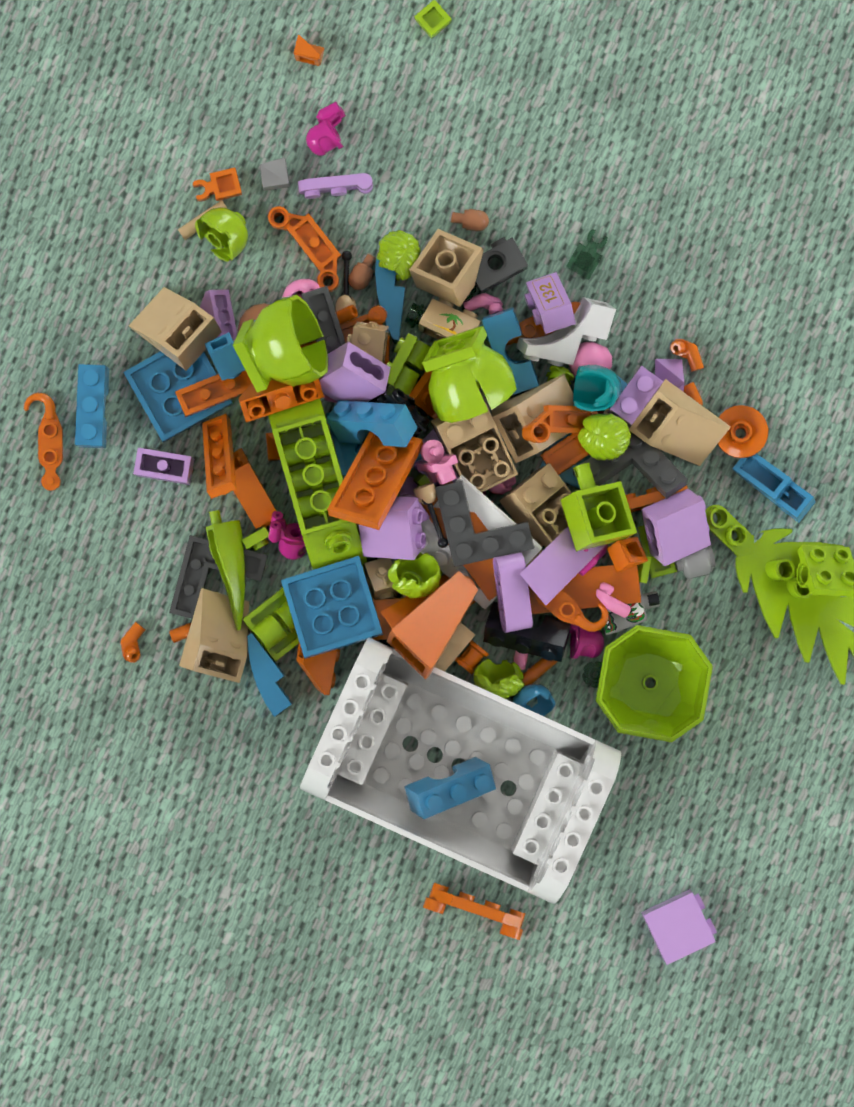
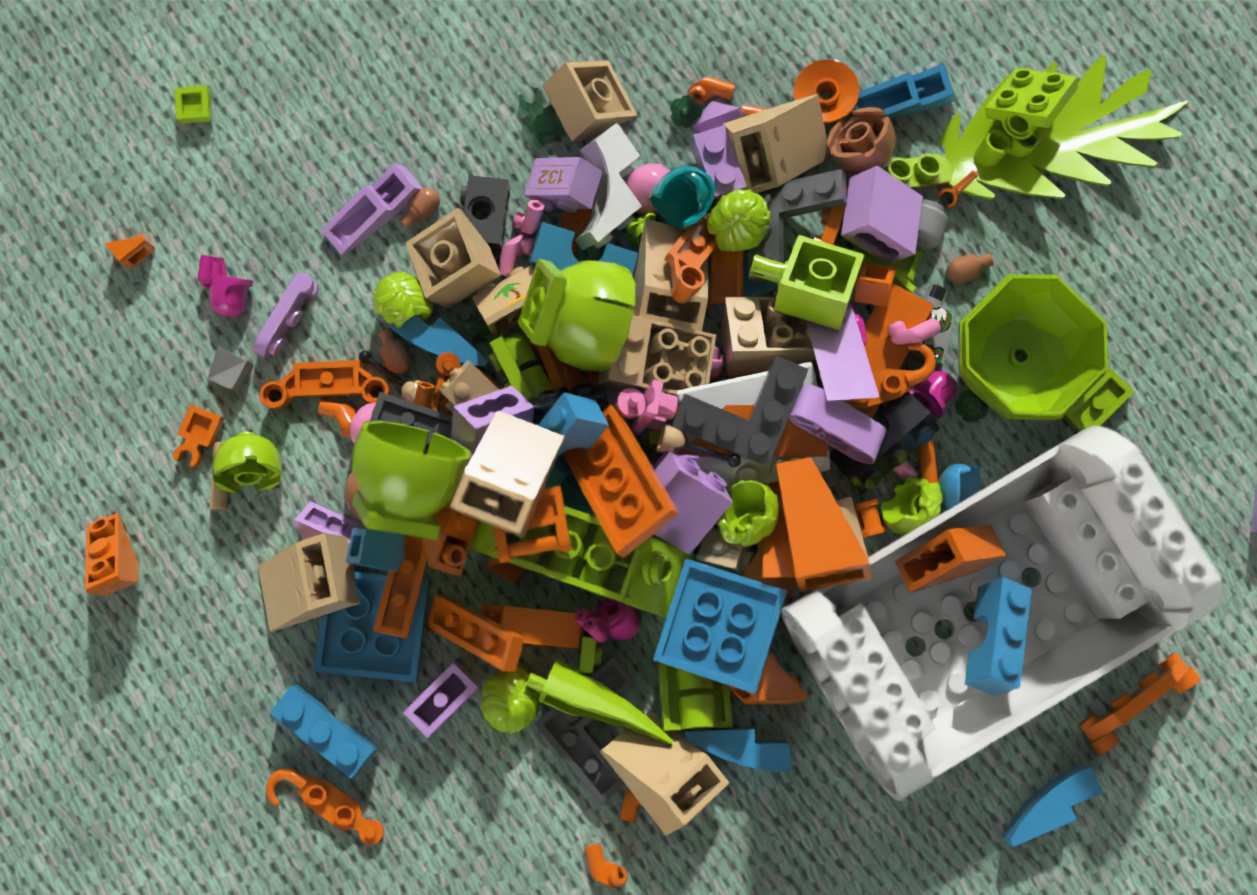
camera: 55 degrees left, 5 degrees down
(103, 189) = (109, 557): none -> orange slope
(191, 509) = (508, 702): none -> lime hair
(300, 268) = (341, 411): none -> orange arm
(315, 436) = (547, 513): none -> orange plate
(329, 406) = (508, 474): none -> slope
(370, 897) = (1052, 805): none -> dark azure slope
(447, 188) = (371, 208): none -> lavender slope
(480, 723) = (950, 556): none -> orange slope
(512, 298) = (529, 222): none -> bright pink arm
(623, 278) = (588, 98): none -> tan slope
(654, 350) = (677, 107): none -> clear green plate
(654, 754) = (1099, 402): none -> lime hinge
(686, 608) = (967, 268): none -> nougat cylinder
(721, 479) = (862, 140): none -> nougat cylinder
(735, 565) = (958, 188): none -> orange hand

